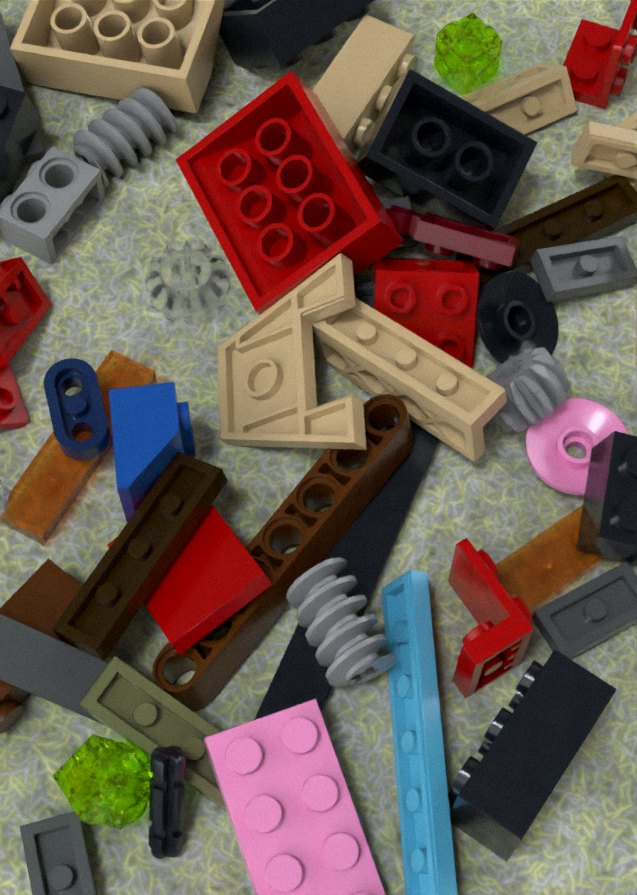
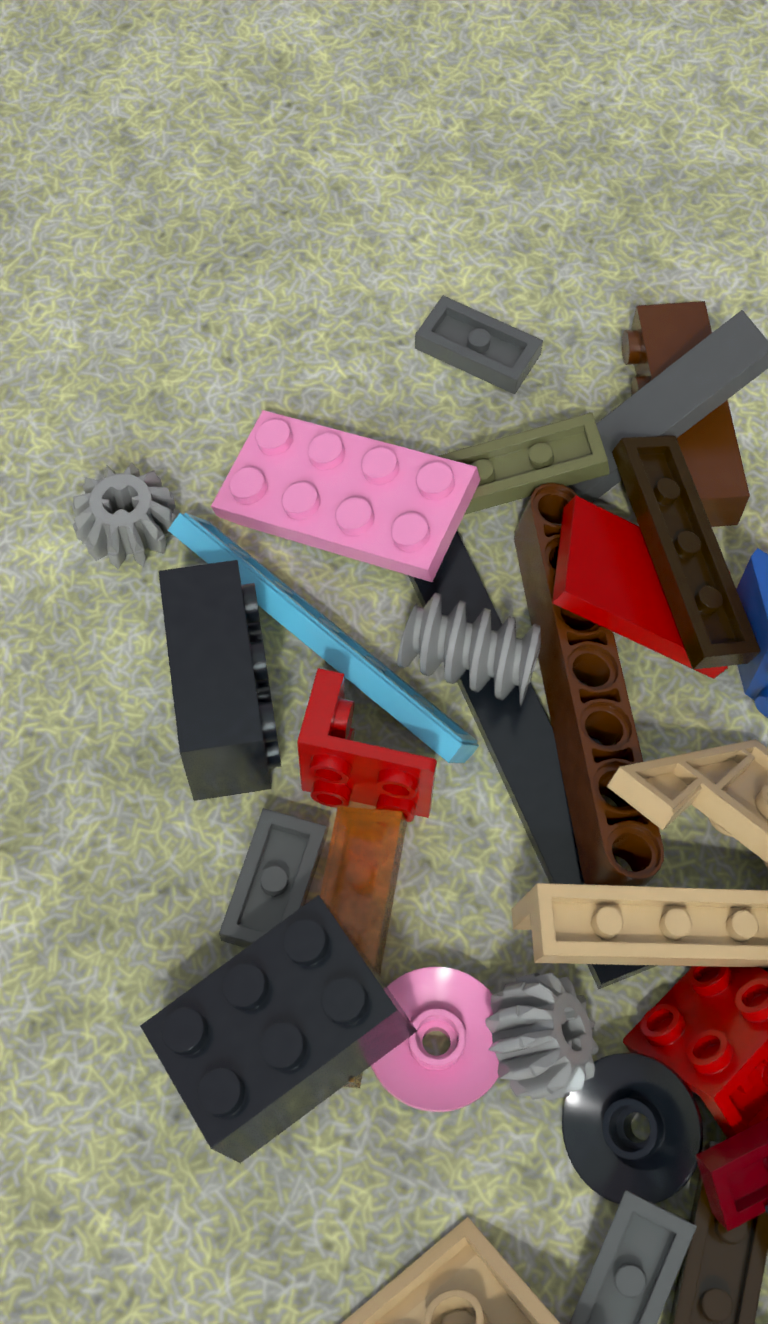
camera: 135 degrees right, 0 degrees up
(106, 782) = (514, 398): clear neon green brick -> none
(166, 801) = (461, 426): black axle -> none

